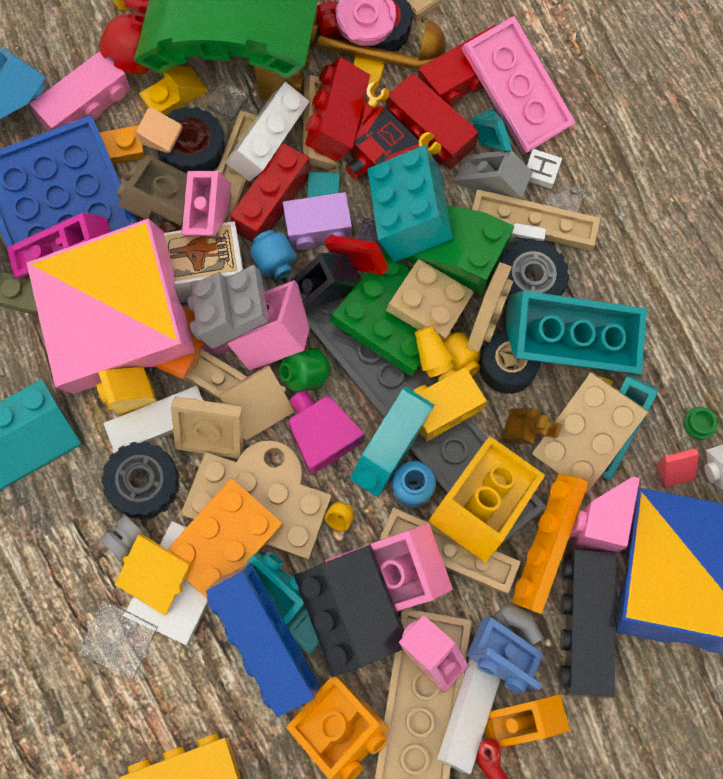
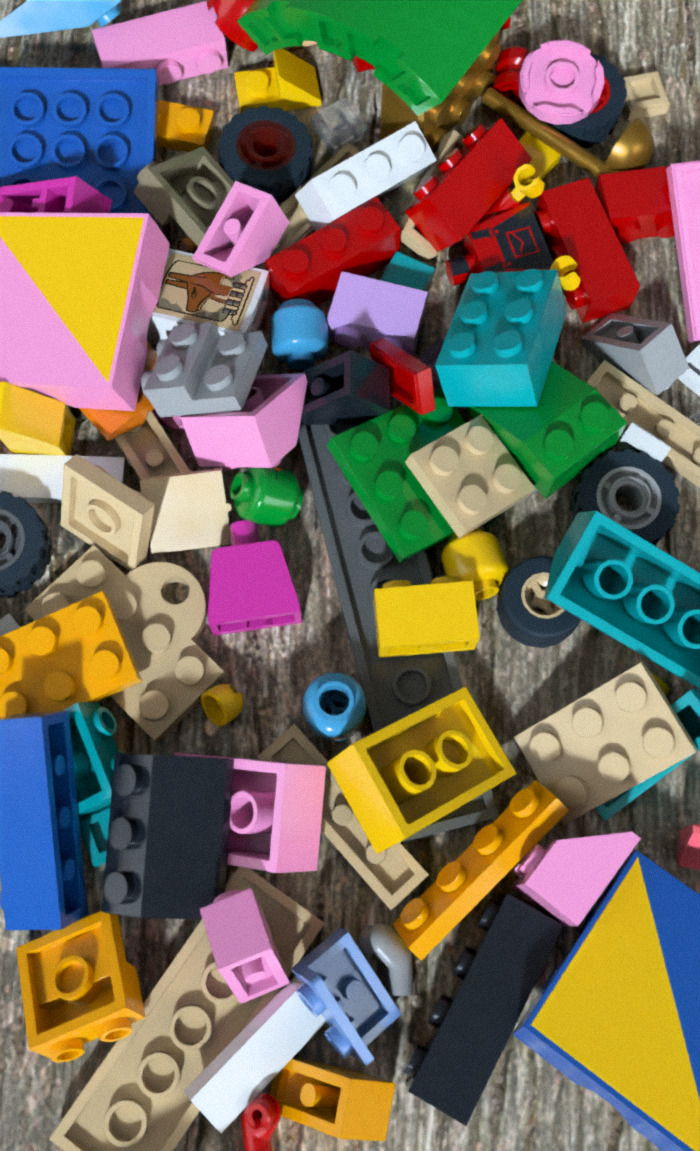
camera: 25 degrees right, 0 degrees up
(158, 131) = (227, 120): light nougat slope -> none
(391, 442) = (328, 636): slope -> none
(432, 351) = (439, 542): yellow cone -> none
(491, 131) = (657, 292): teal slope -> none
(491, 308) = (544, 516): tan plate -> none
(524, 425) = (522, 694): pearl gold plate -> none

